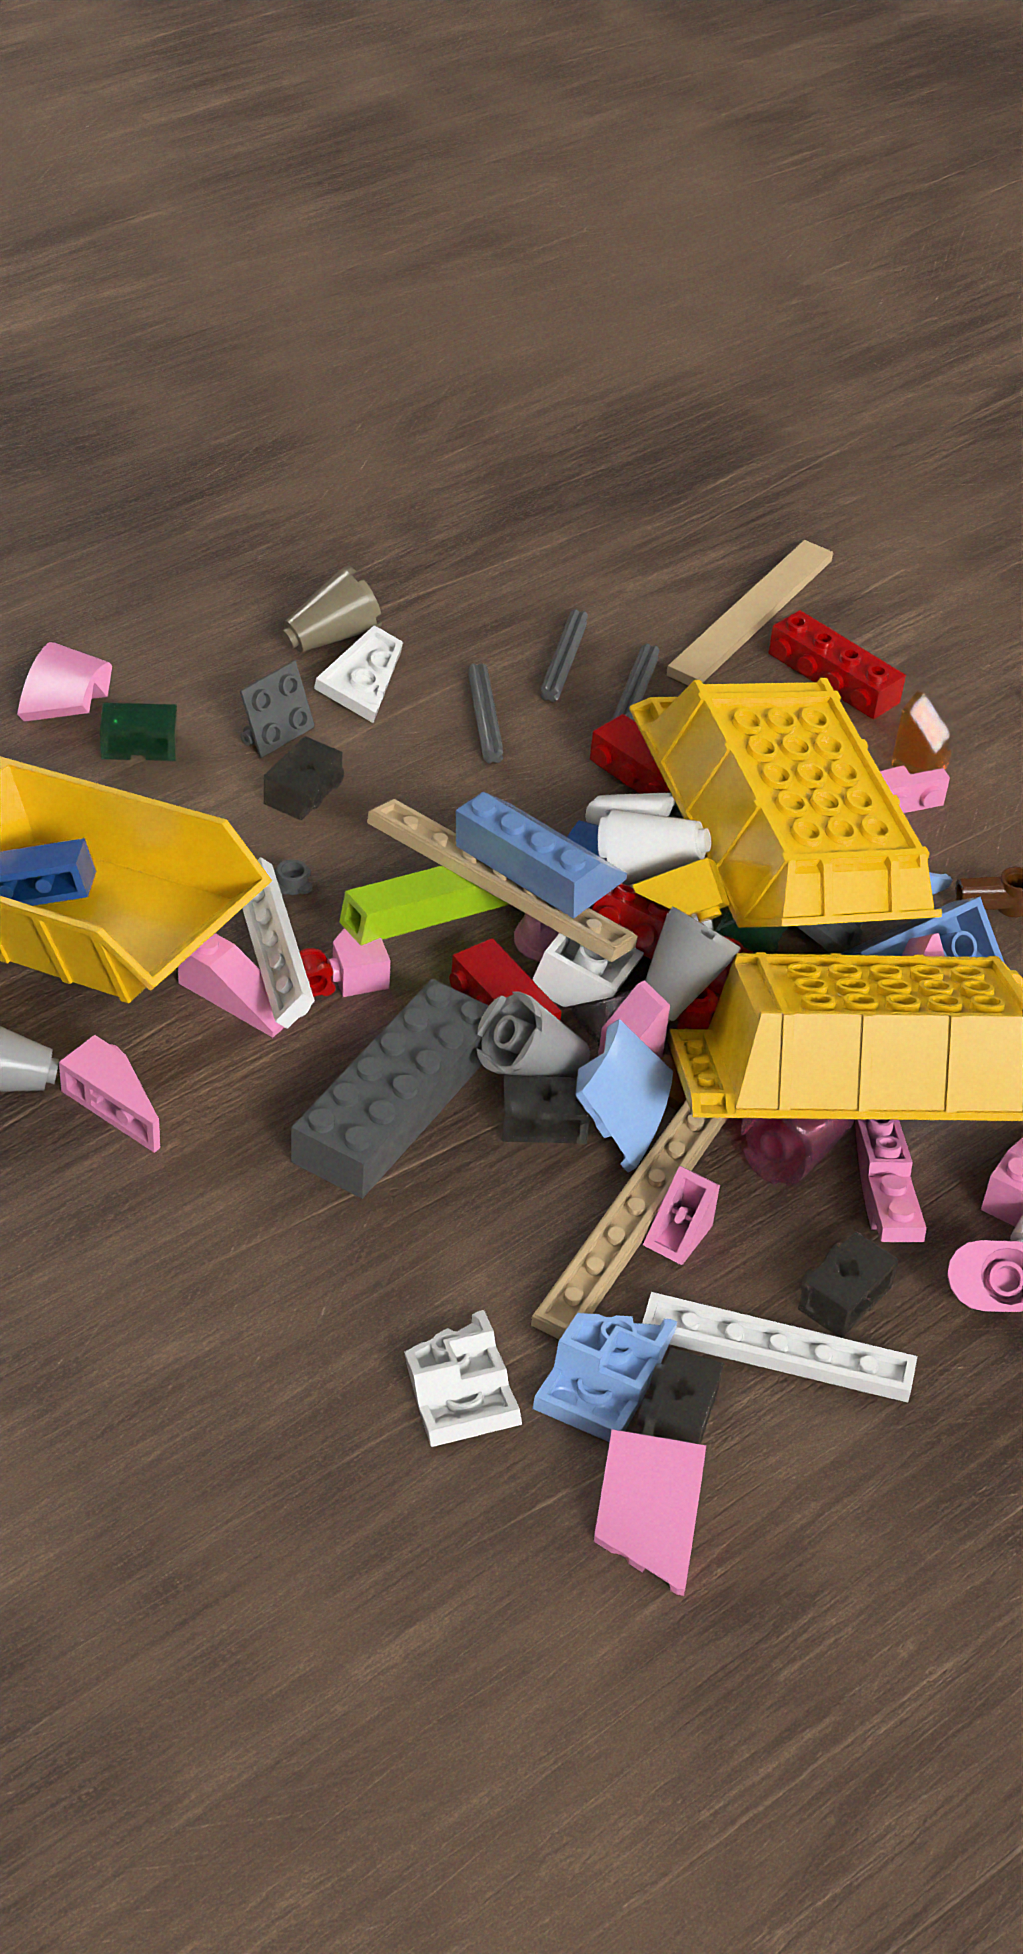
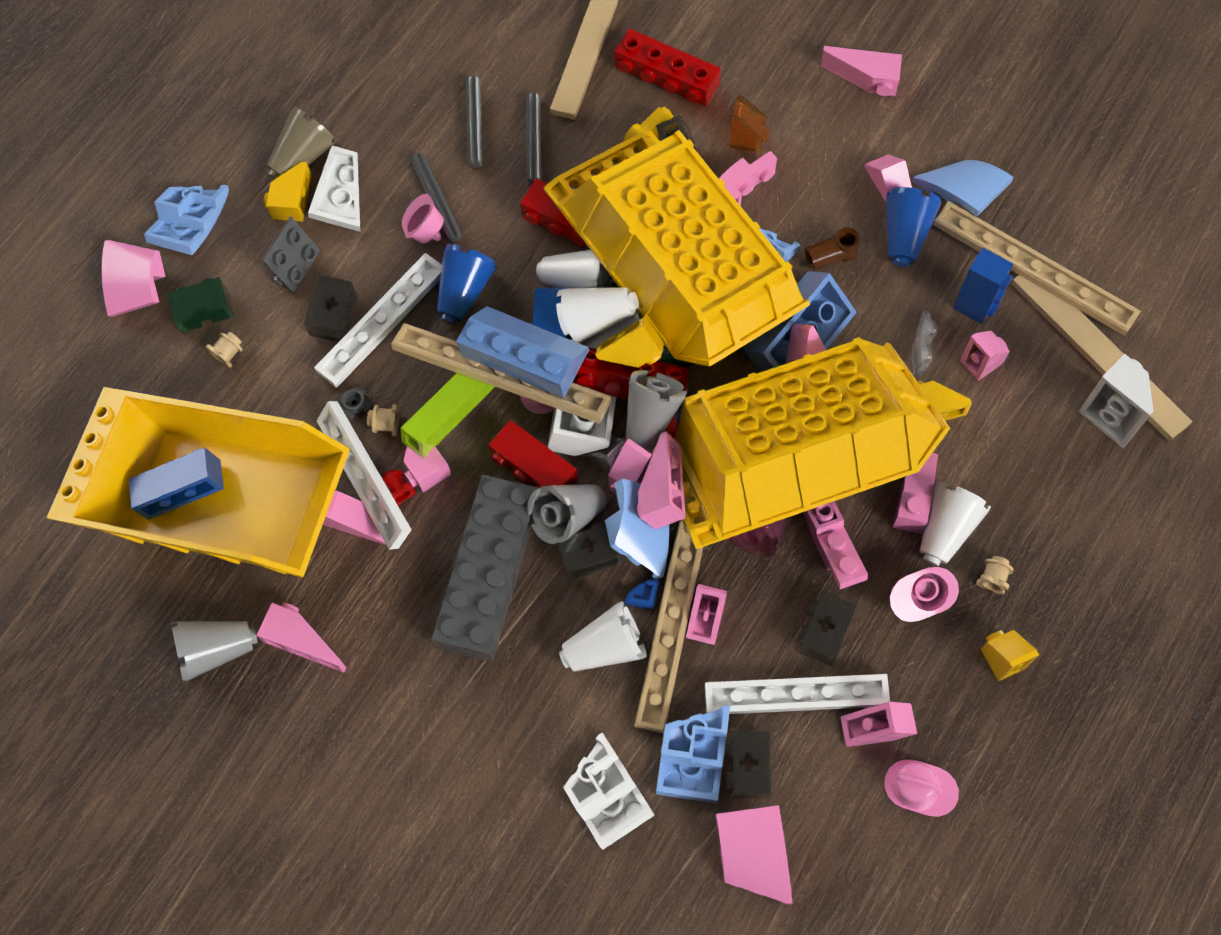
camera: 10 degrees left, 25 degrees up
(151, 779) = (225, 348): none -> tan brick
(160, 649) = (185, 217): none -> light blue slope
(310, 649) = (289, 194): none -> yellow slope
(323, 902) = (384, 419): none -> tan brick
(351, 809) = (379, 321): none -> white plate
(460, 726) = (422, 220): none -> bright pink piece
(491, 771) = (461, 281): none -> blue cone
(525, 1204) = (604, 641): none -> white cone
(601, 1183) = (643, 595): none -> blue tile
(672, 1044) = (663, 487): none -> bright pink slope
(887, 1410) = (878, 724): none -> bright pink slope
(925, 1511) = (921, 788): none -> bright pink piece

